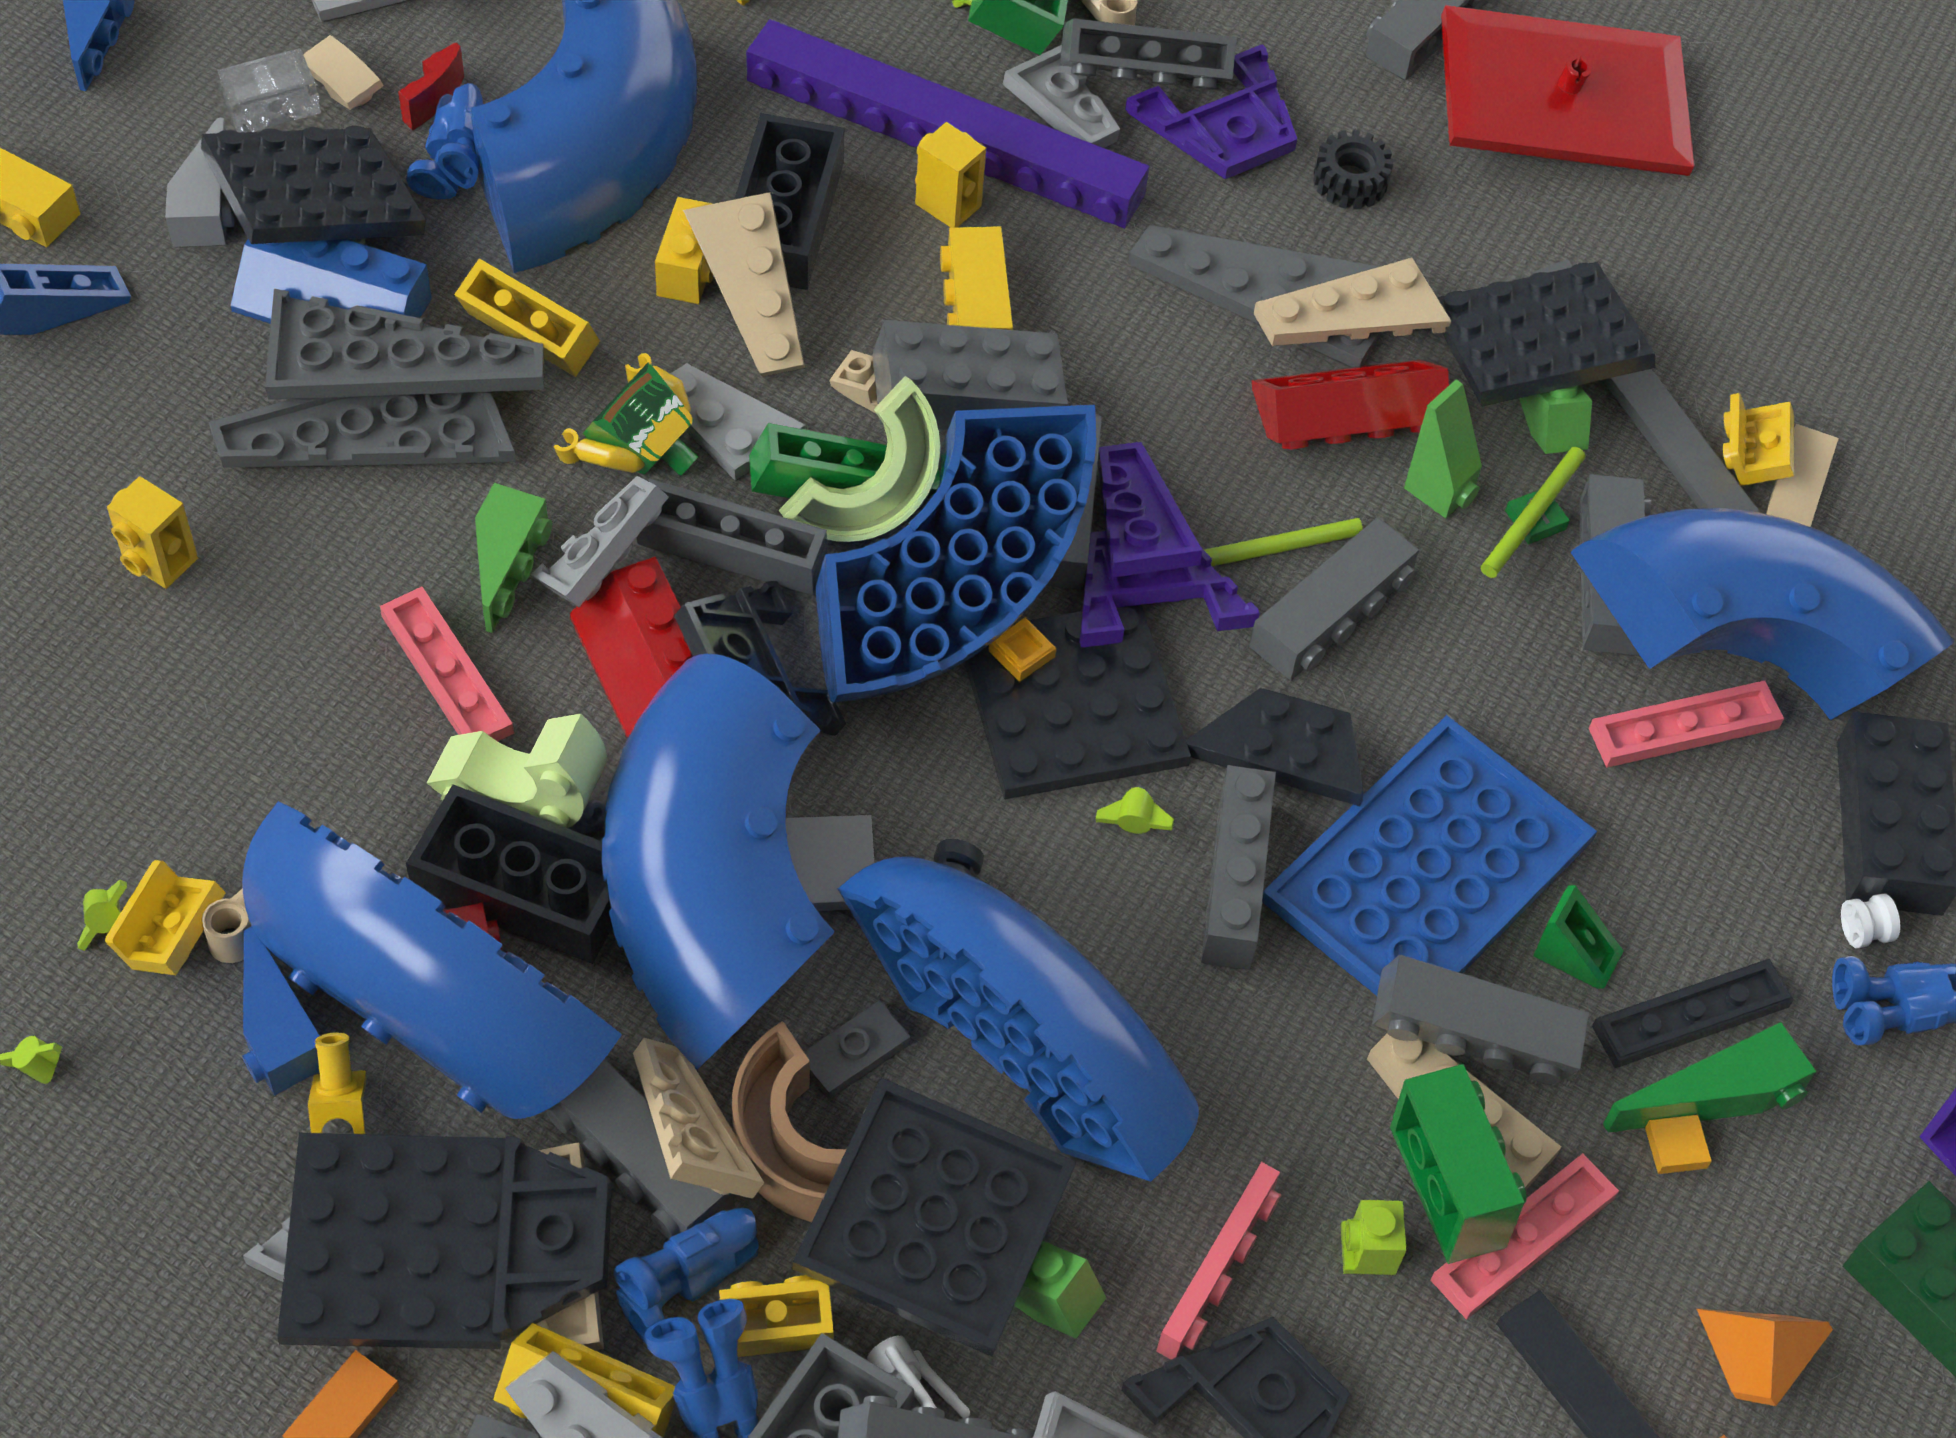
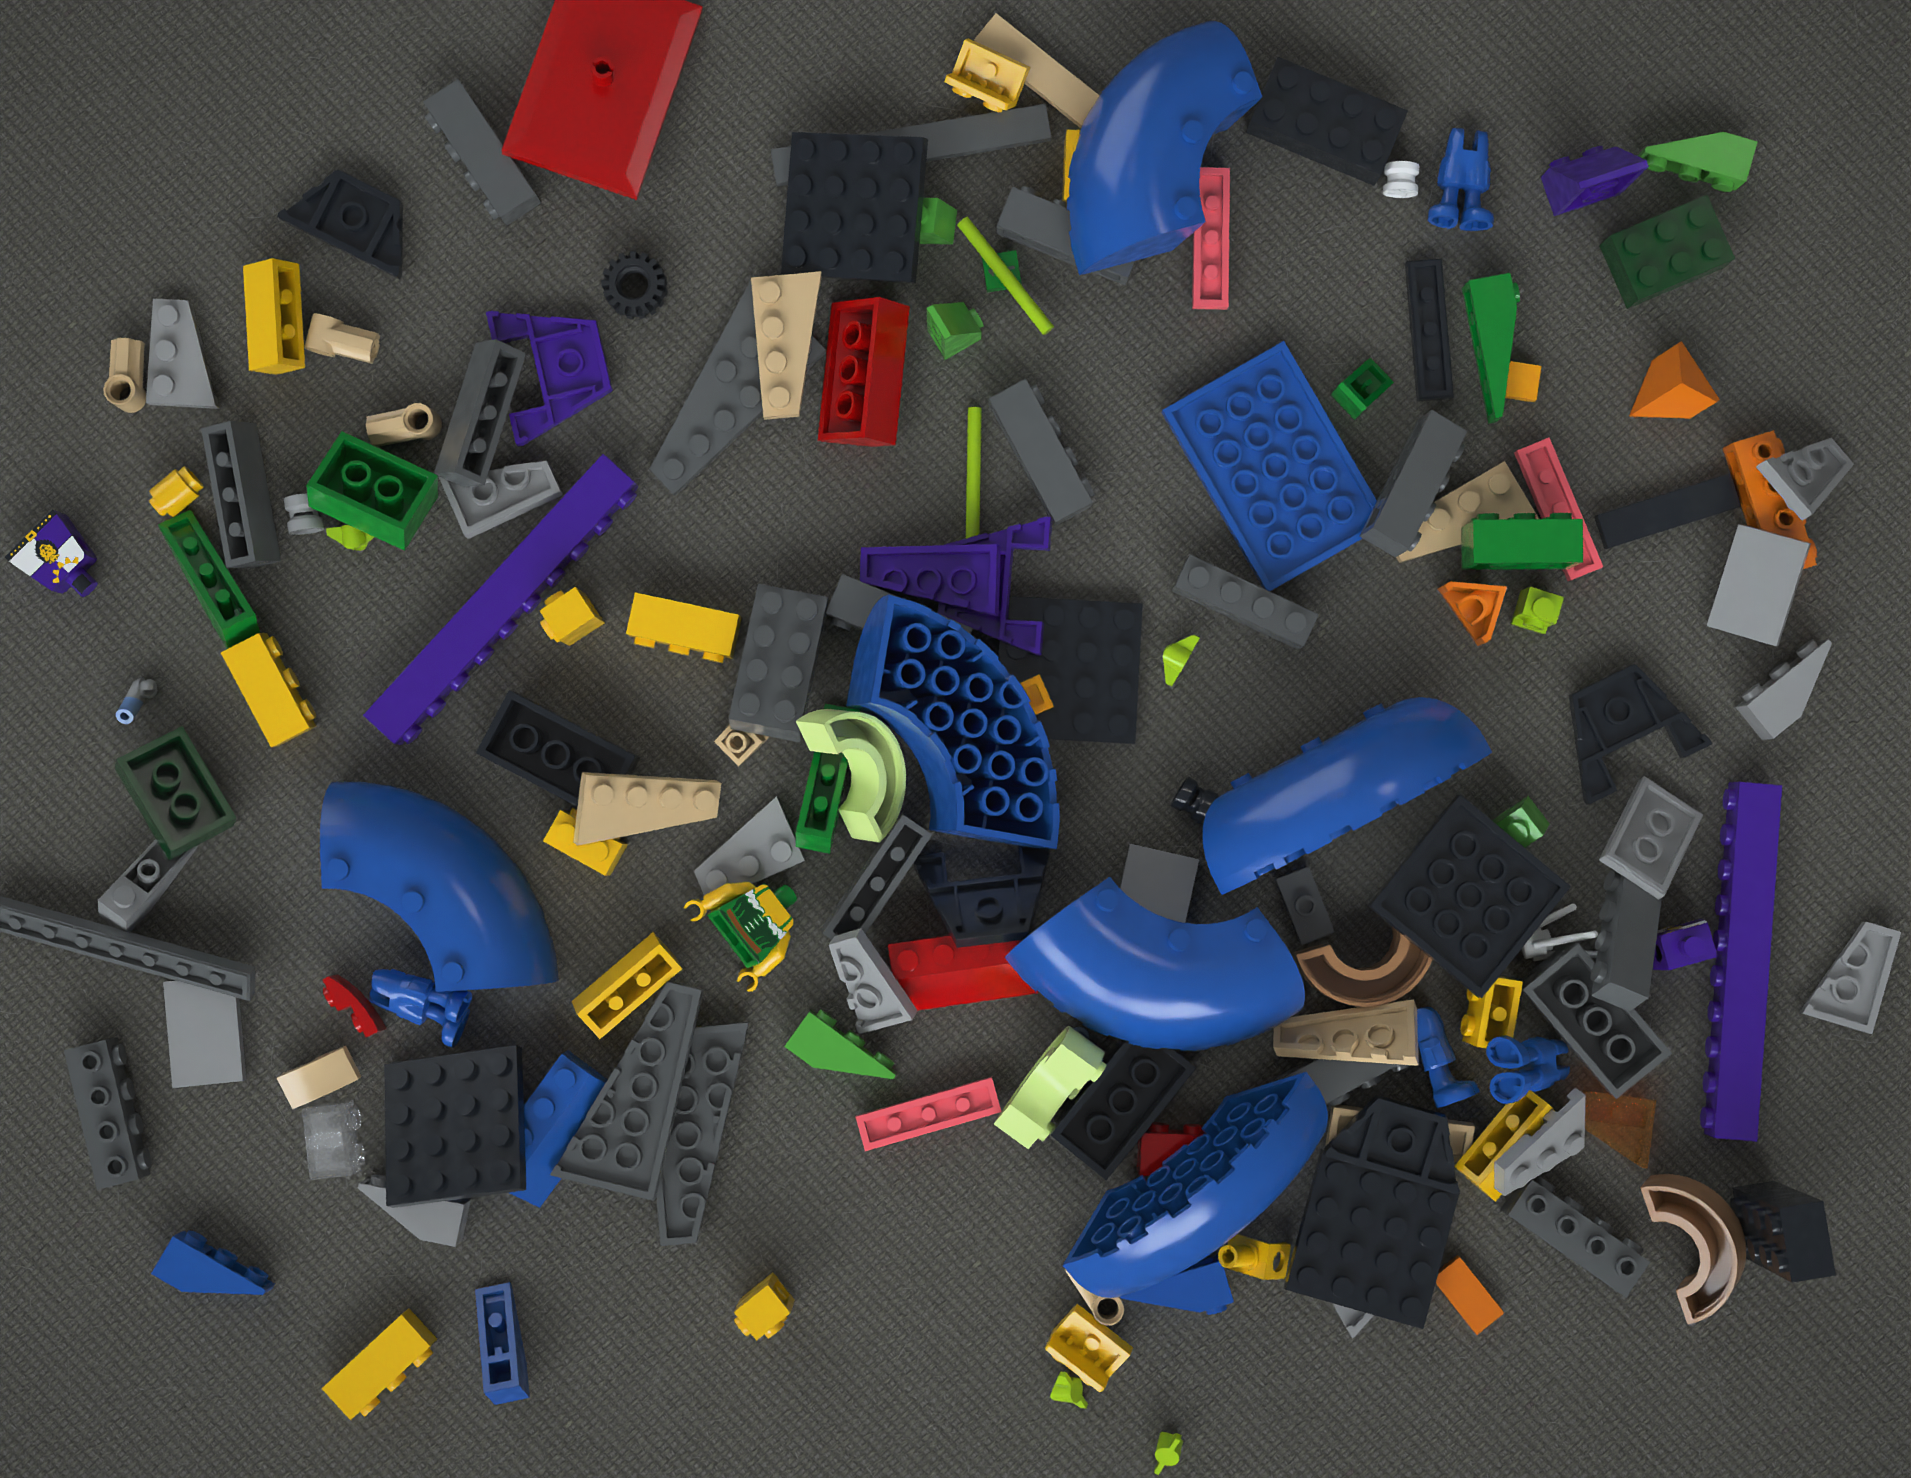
camera: 70 degrees left, 30 degrees up
(1211, 1281) = (1534, 724): coral plate -> none
(1297, 739) = (1152, 531): black wing -> none
(1349, 1156) = (1475, 606): none -> orange slope

